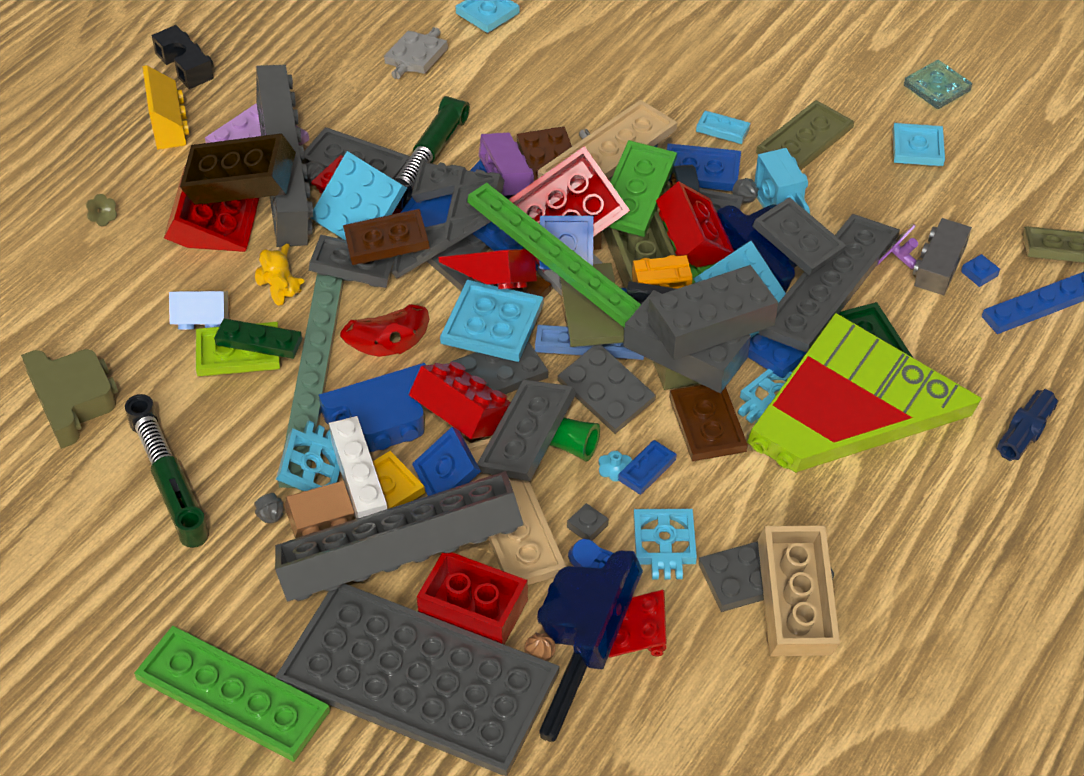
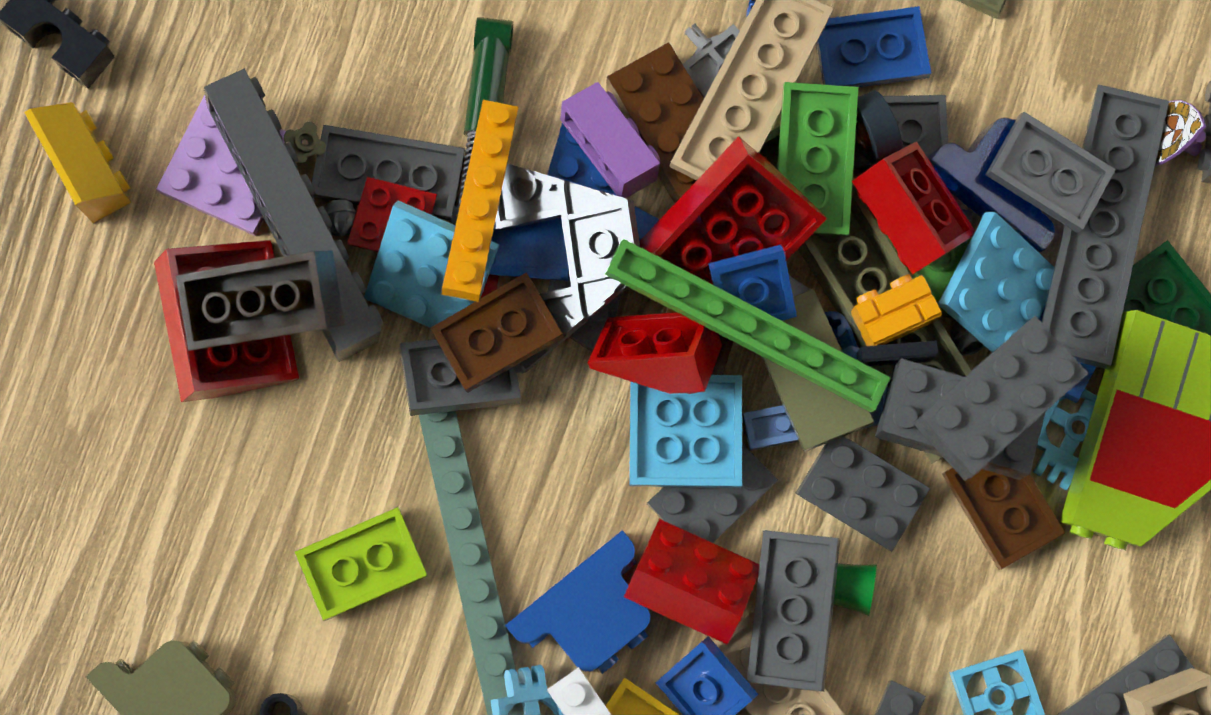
camera: 20 degrees left, 30 degrees up
(106, 210) = (70, 373): olive plant -> none
(198, 308) = (285, 518): light blue brick -> none
(258, 338) = (386, 549): dark green plate -> none
(277, 274) = (359, 418): yellow animal -> none
(309, 130) = (307, 132): none -> olive plate
(364, 334) = (543, 466): red piece -> none
(403, 162) = (480, 201): none -> light orange plate
(613, 464) = (895, 602): medium azure plant -> none
(647, 467) = (949, 600): blue plate -> none
(747, 188) = (945, 80): dark grey plate -> none
(779, 179) = (999, 74): medium azure brick -> none

